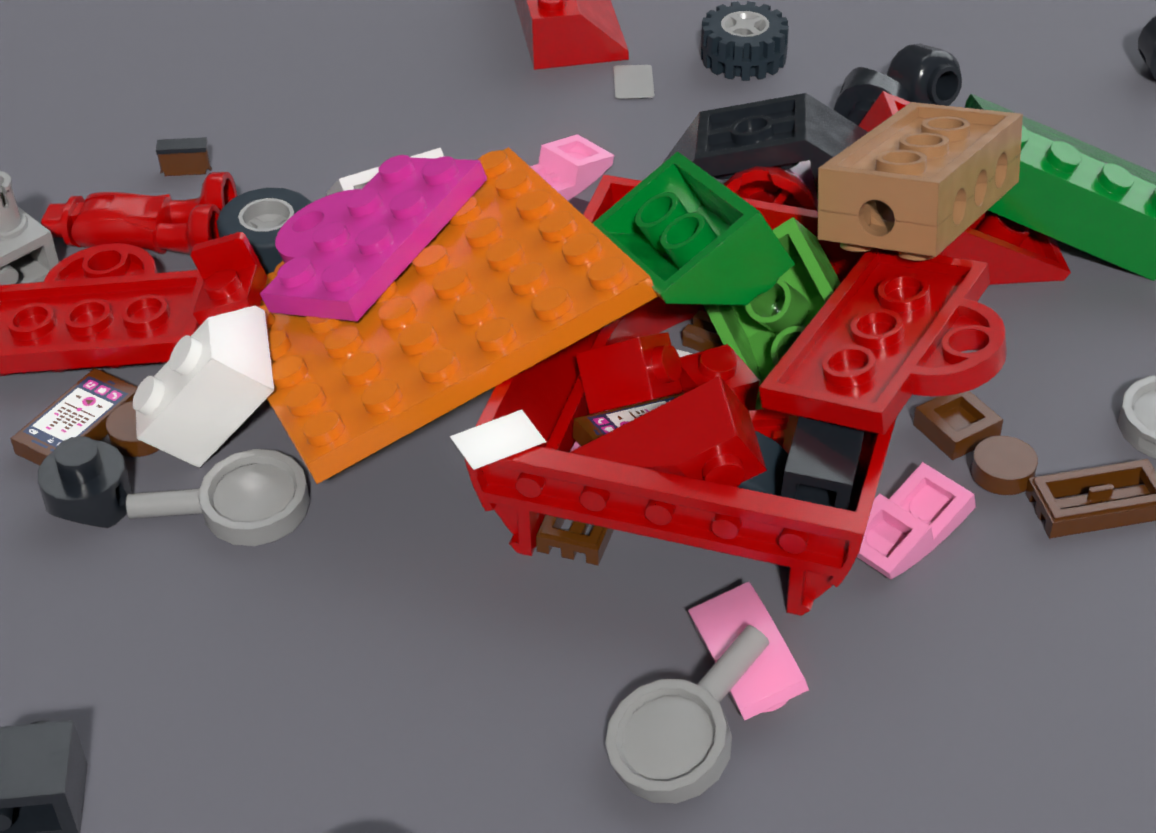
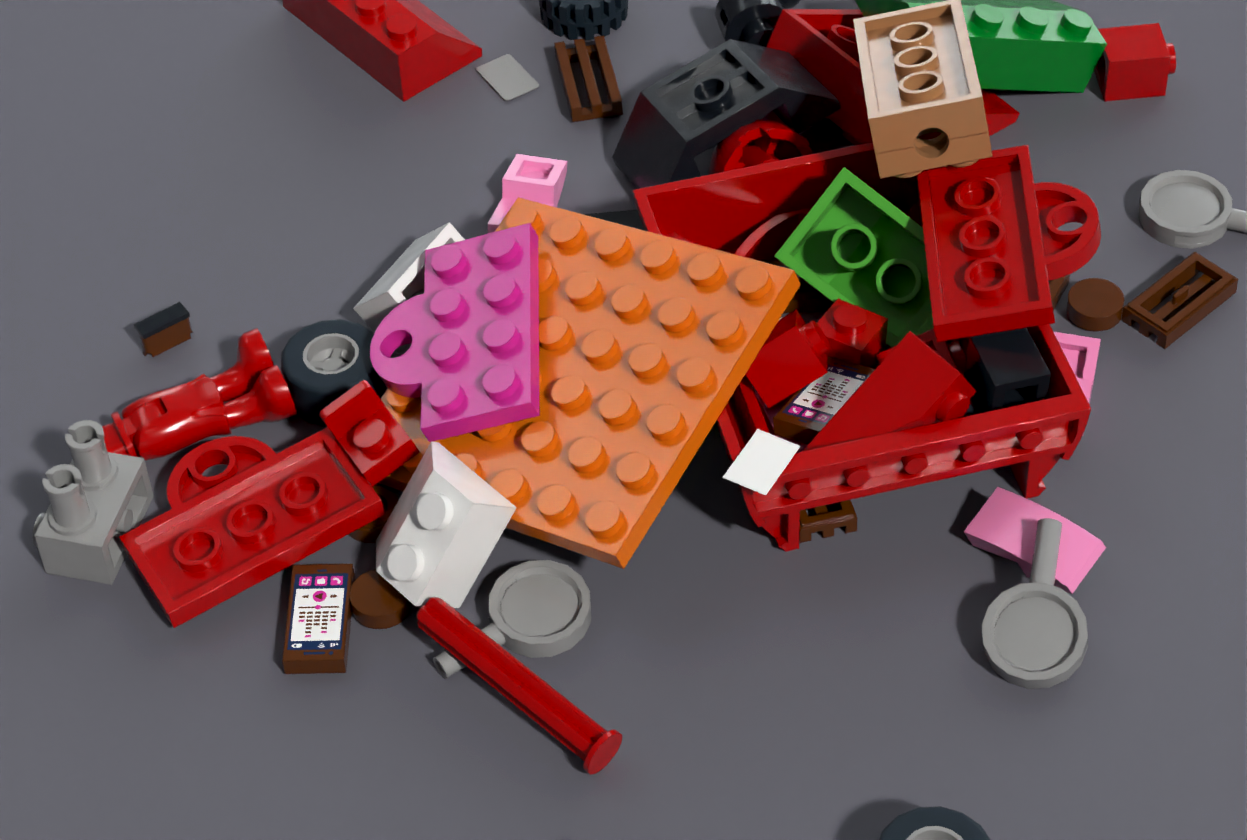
camera: 30 degrees left, 5 degrees up
(83, 480) = (392, 665): black piece -> none
(178, 633) = (519, 685): none -> red axle
(695, 237) = (783, 215): green slope -> none
(702, 85) = (583, 55): none -> reddish brown tile

